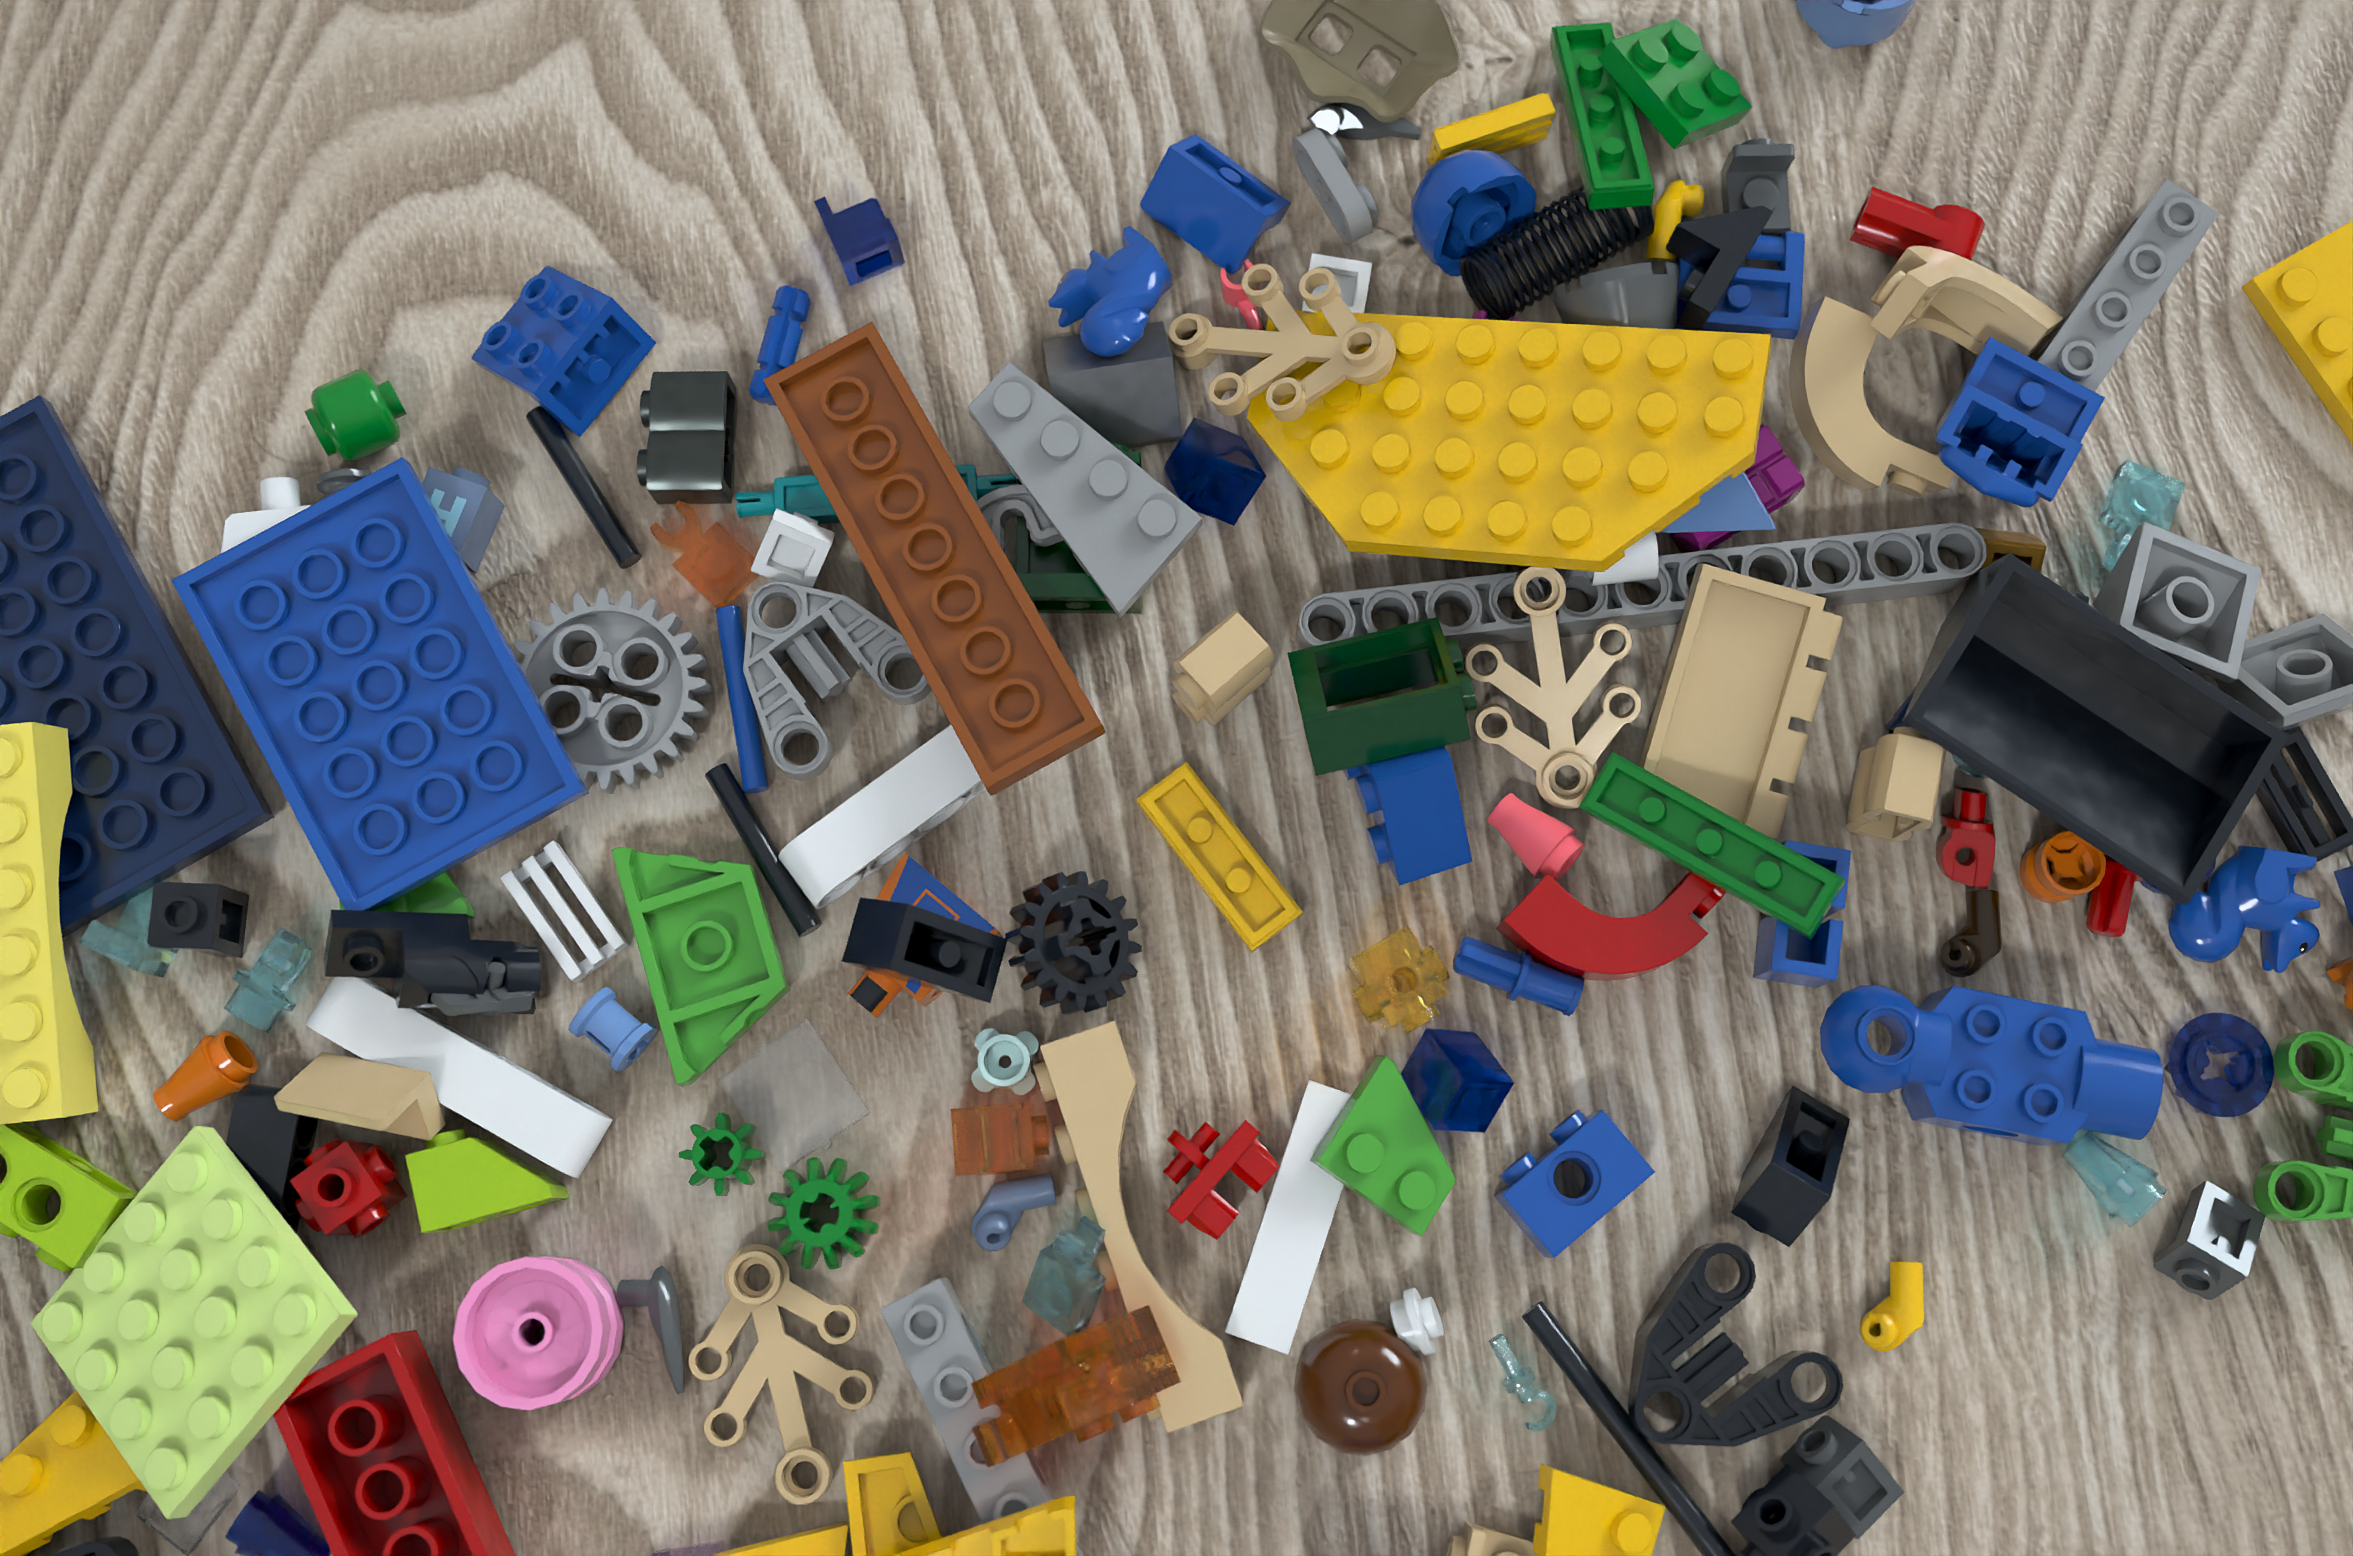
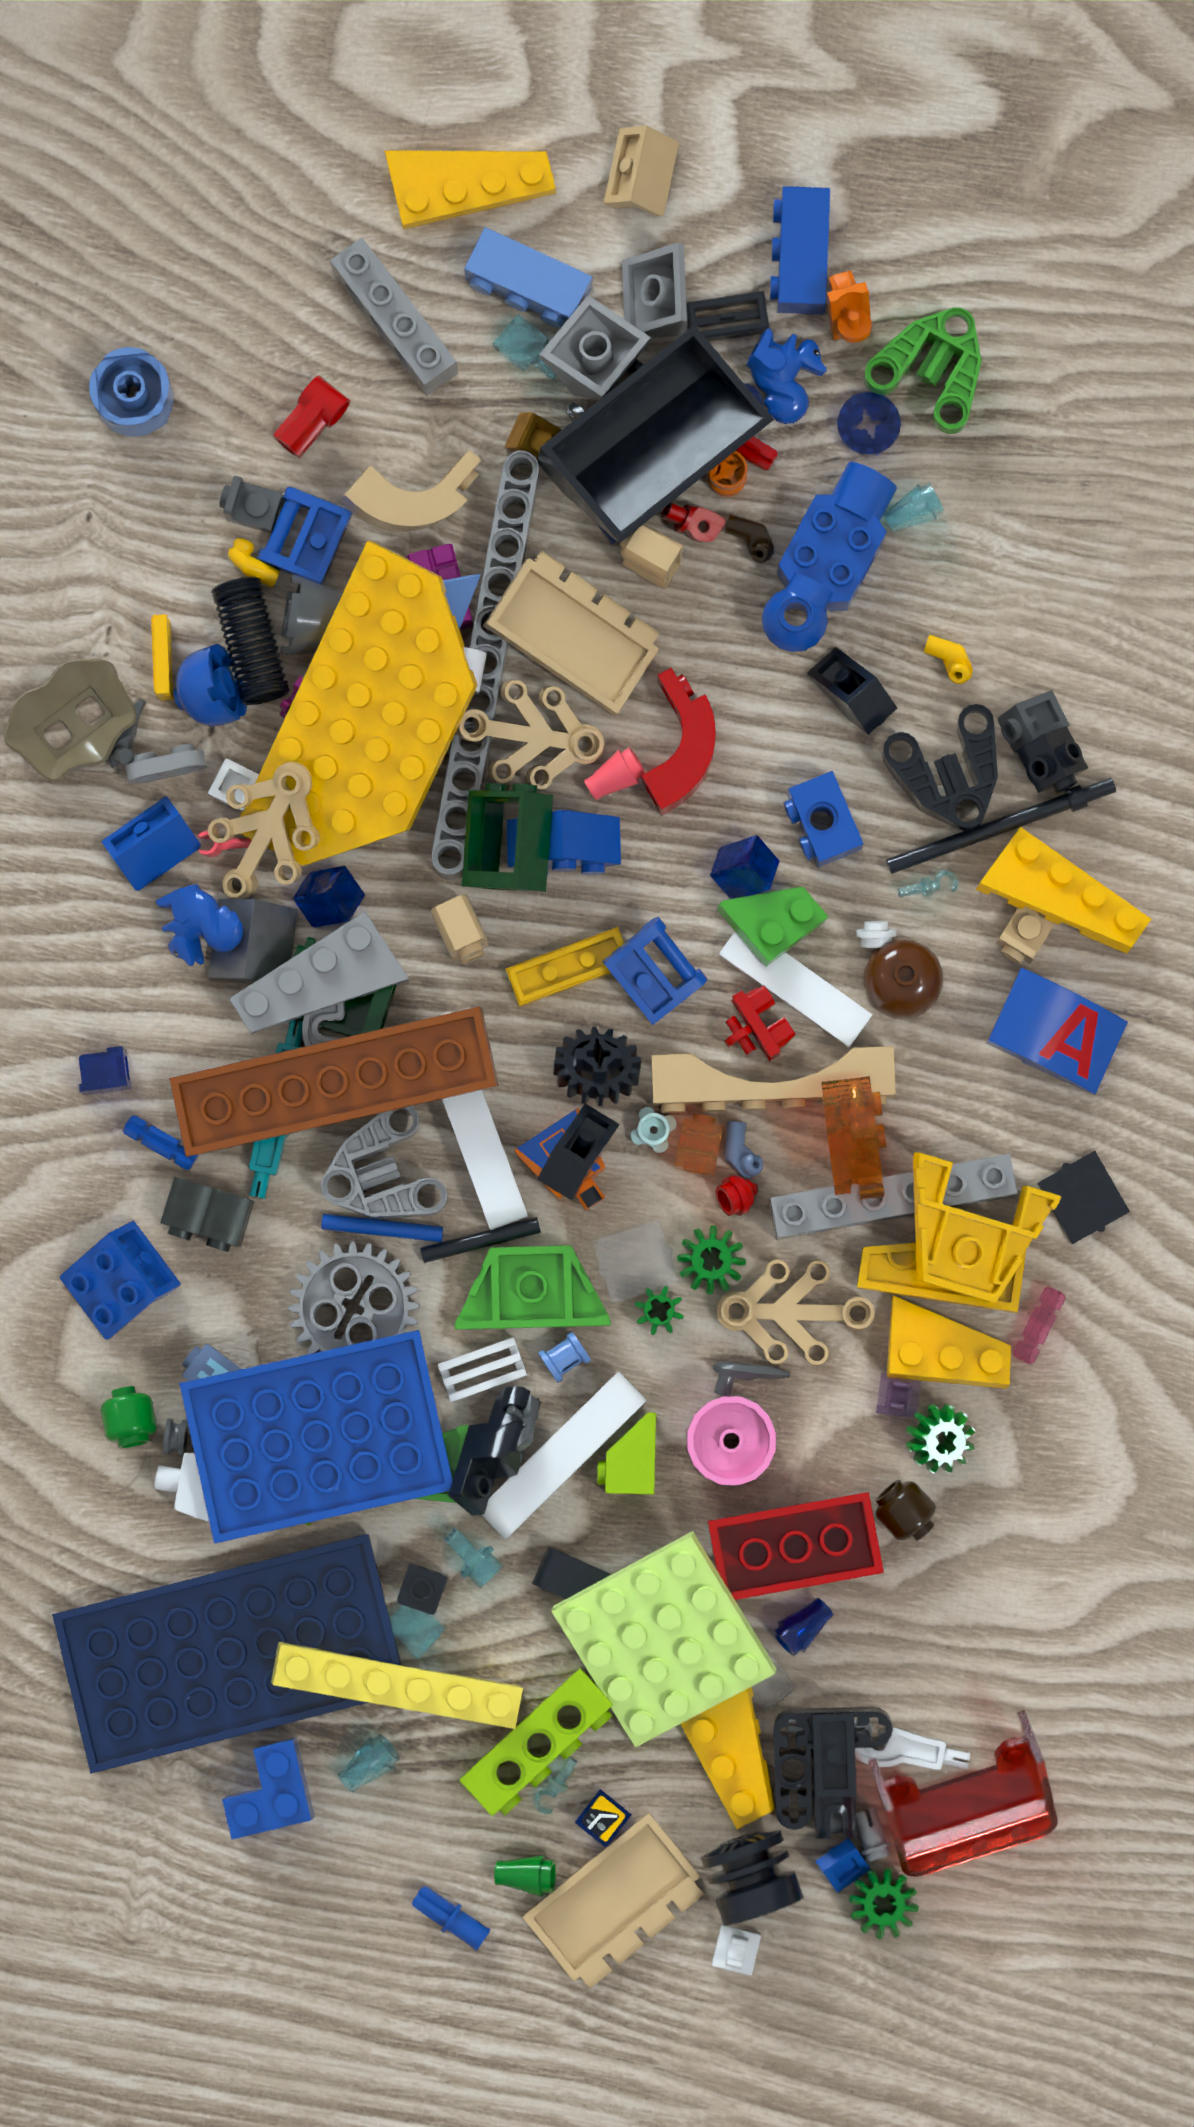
camera: 70 degrees left, 5 degrees up
(208, 1073) = (518, 1607): orange cone -> none
(365, 1096) = (562, 1507): tan panel -> none
(368, 1190) = (629, 1530): red brick -> none
(584, 487) = (214, 1290): black bar -> none
(709, 561) = (289, 1222): clear orange plate -> none
(792, 549) = (302, 1167): white tile -> none
(938, 1222) = (736, 1195): none -> red plate
(1062, 1281) = (792, 1130): clear light blue plate -> none
(1231, 977) = (644, 979): none -> blue plate
(1400, 957) = (669, 895): clear yellow brick -> none
(1518, 975) = (694, 811): blue axle -> none
(1600, 120) = (176, 586): green tile -> none
(1675, 82) = (167, 533): green plate -> none
(1712, 845) = (654, 675): green tile -> none
(1717, 251) = (289, 542): black slope -> none
(1790, 956) = (693, 631): blue piece -> none
(1960, 302) = (368, 407): tan arch -> none
(2014, 426) = (460, 412): blue piece -> none
(2212, 1243) = (966, 466): dark grey bracket -> none
(2247, 472) = (526, 278): none -> medium blue brick

